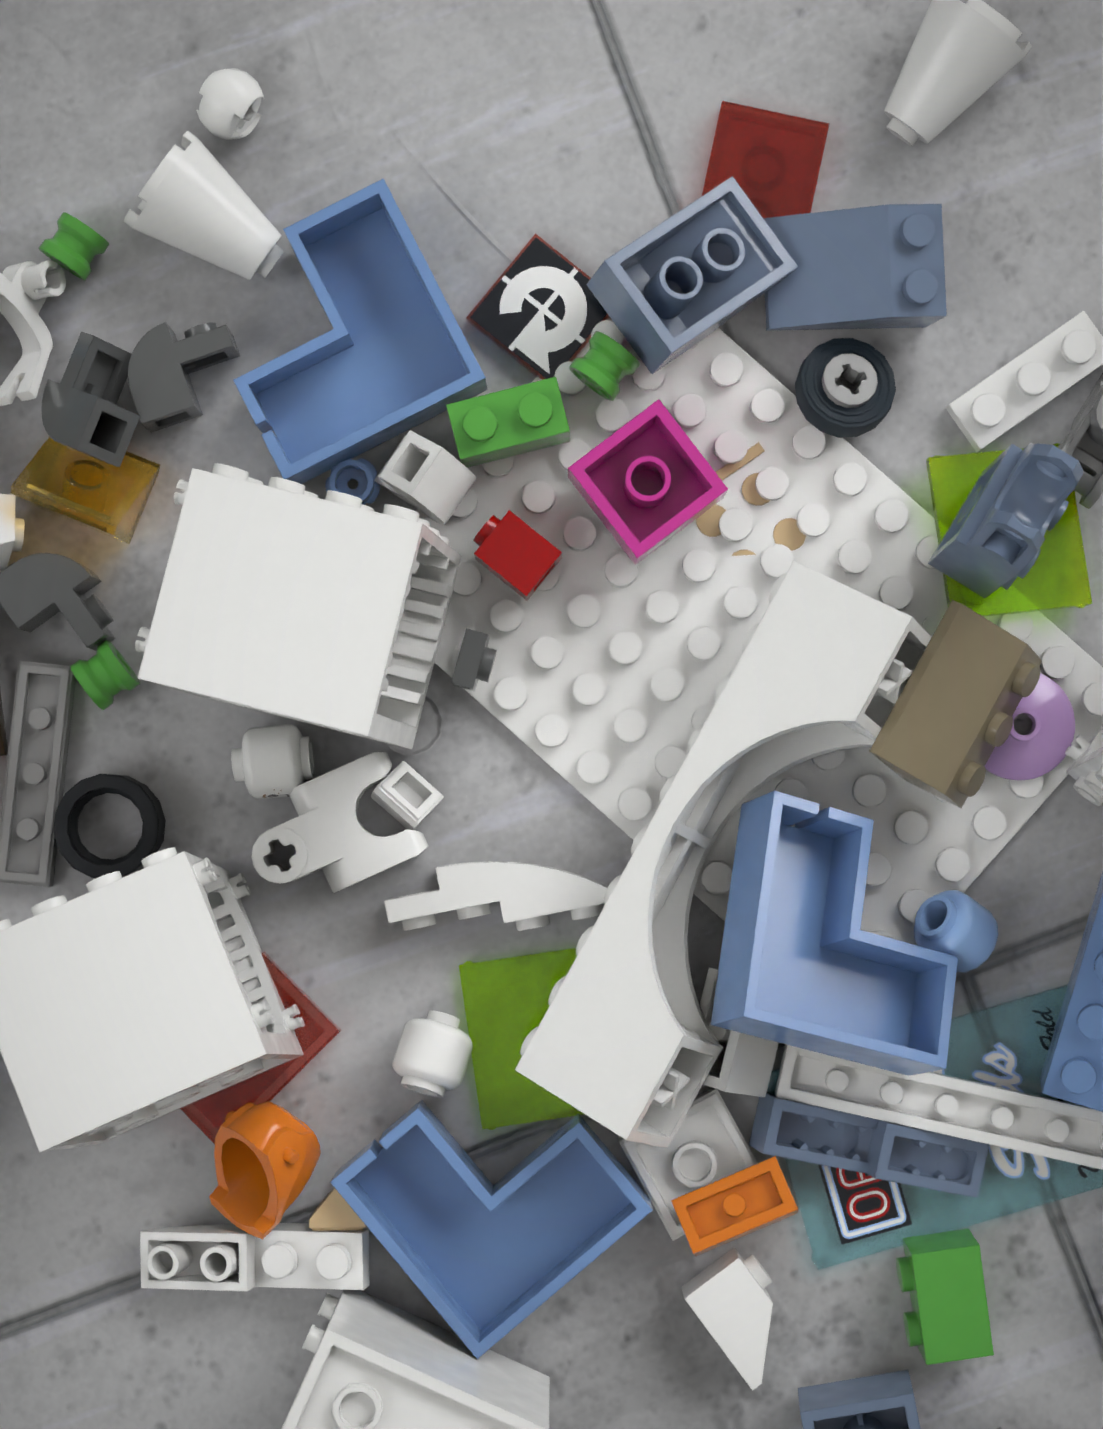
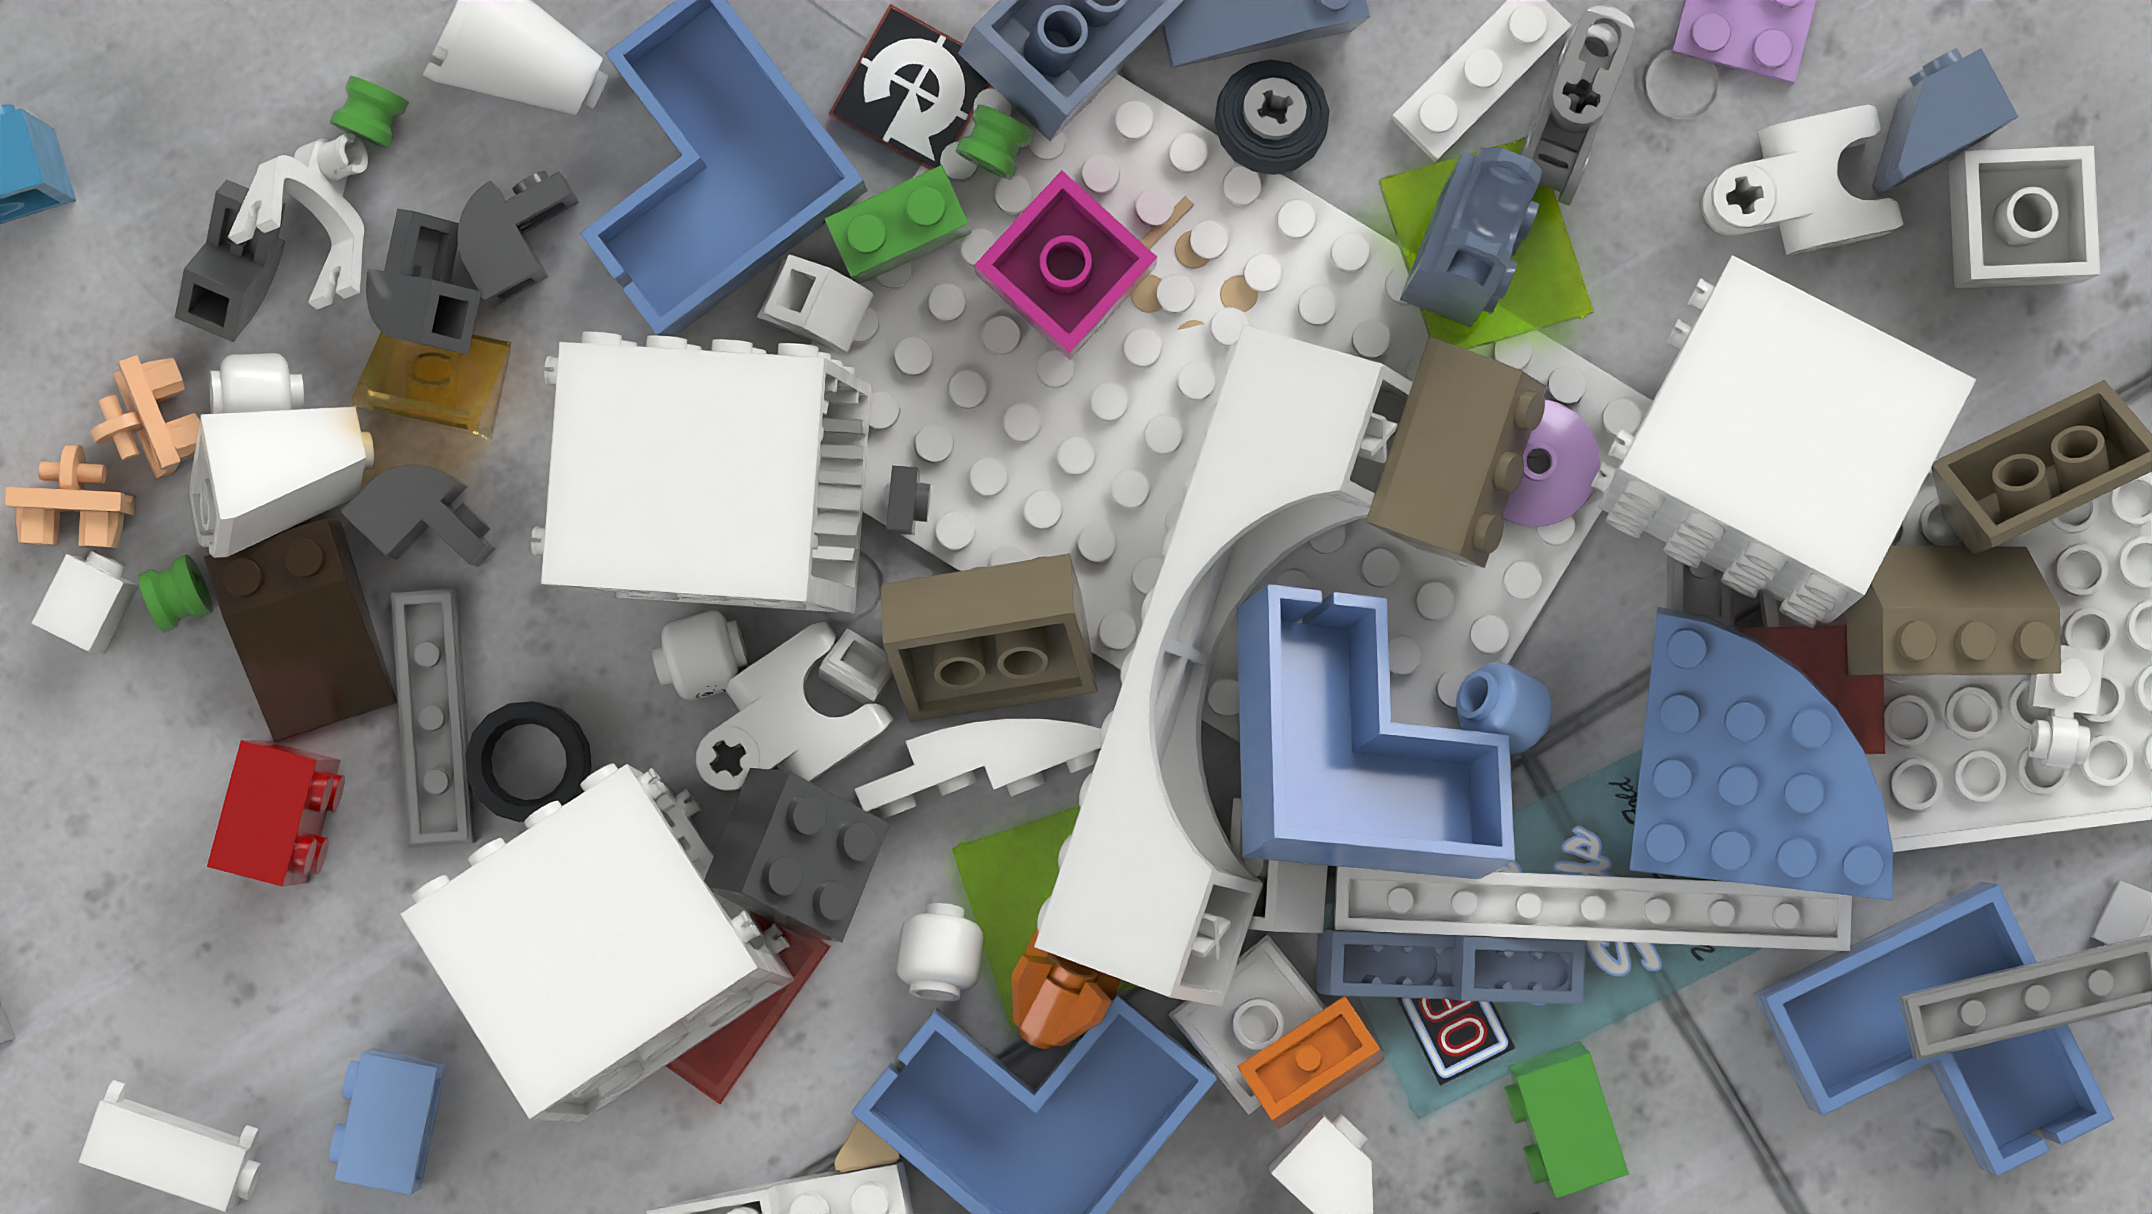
camera: 10 degrees left, 0 degrees up
(105, 675) = (492, 591): bright green wheel -> none
(261, 1165) = (769, 1110): orange helmet -> none
(323, 949) = (796, 854): none -> dark grey brick
(359, 470) = (737, 308): medium blue plate -> none
(515, 553) = (932, 371): red brick -> none
(522, 790) = (988, 637): none -> dark tan slope
(525, 1115) = (1057, 997): none -> orange brick

